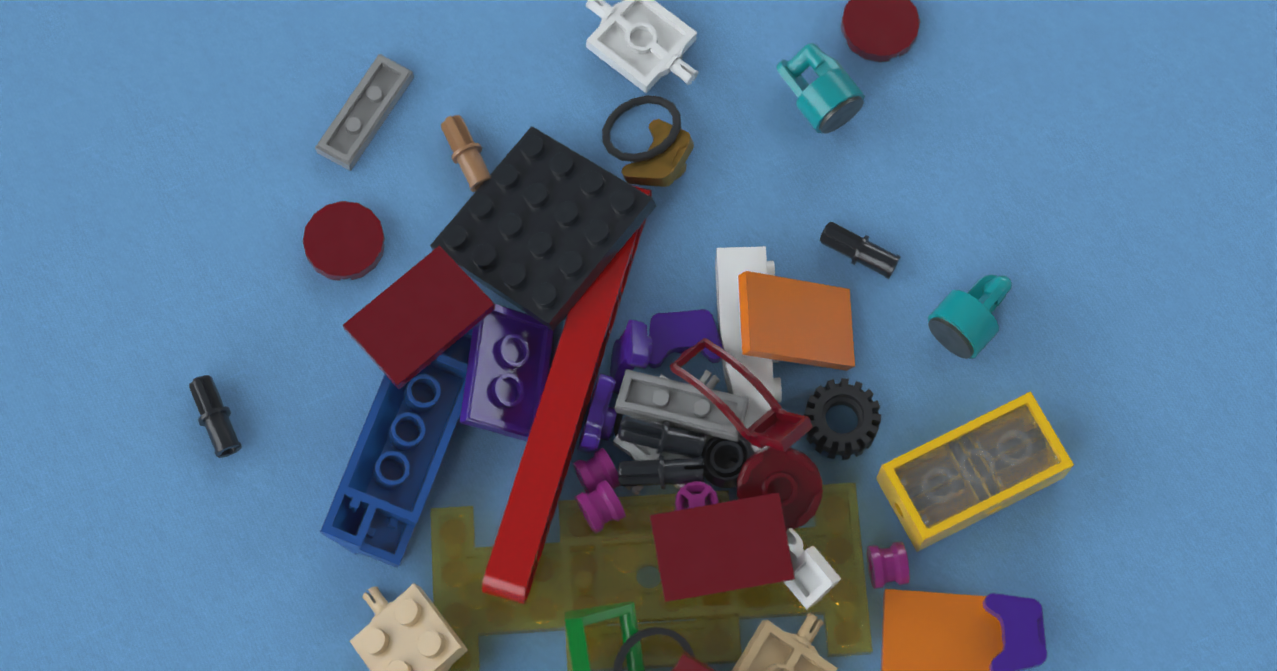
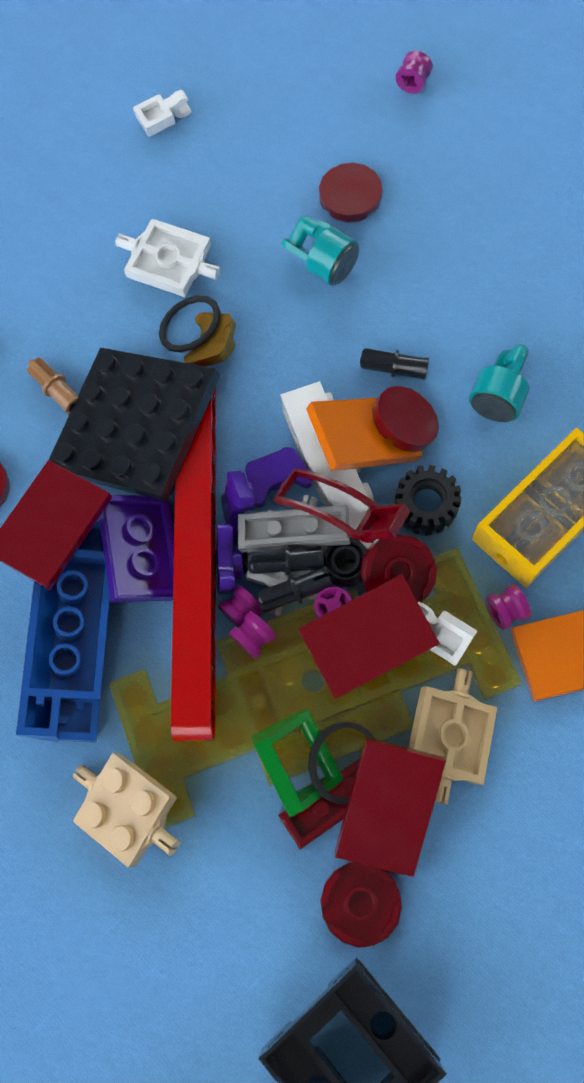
camera: 10 degrees left, 0 degrees up
(848, 319) = (405, 418): none -> dark red tile

